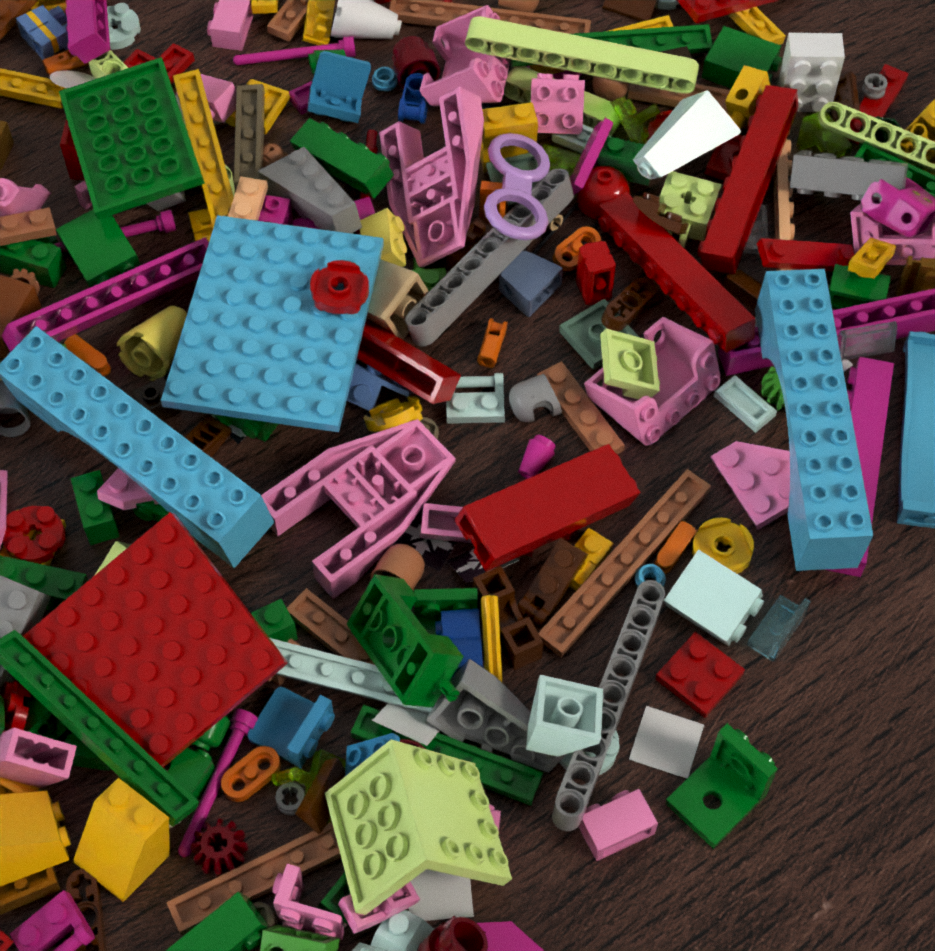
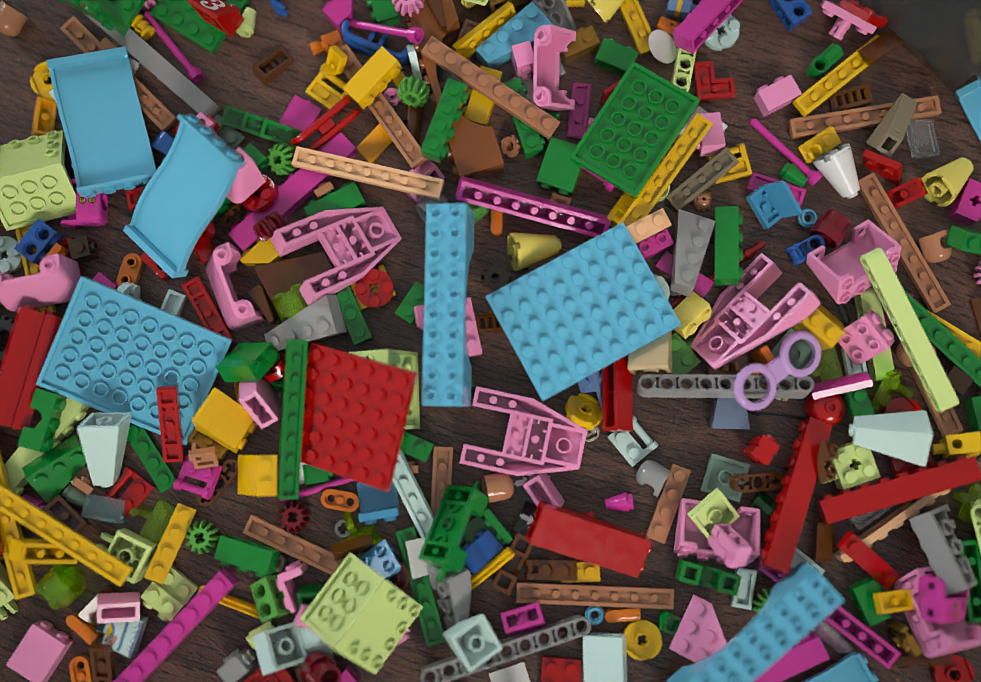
camera: 55 degrees right, 25 degrees up
(32, 897) = (203, 457): none -> nougat bracket
(38, 127) = (615, 57): none -> green brick
(61, 201) = (579, 117): none -> dark pink tile
(342, 301) = (636, 334): red plate -> none
(492, 343) = (671, 424): orange bar -> none
(571, 246) = (771, 423): orange plate -> none
(588, 652) = (523, 619): none -> dark pink brick
(657, 313) = (763, 501): none -> dark green tile
(677, 363) = (729, 545): none -> bright pink brick
(685, 434) = (708, 576): none -> green arch
(724, 504) = (669, 622): none -> green slope

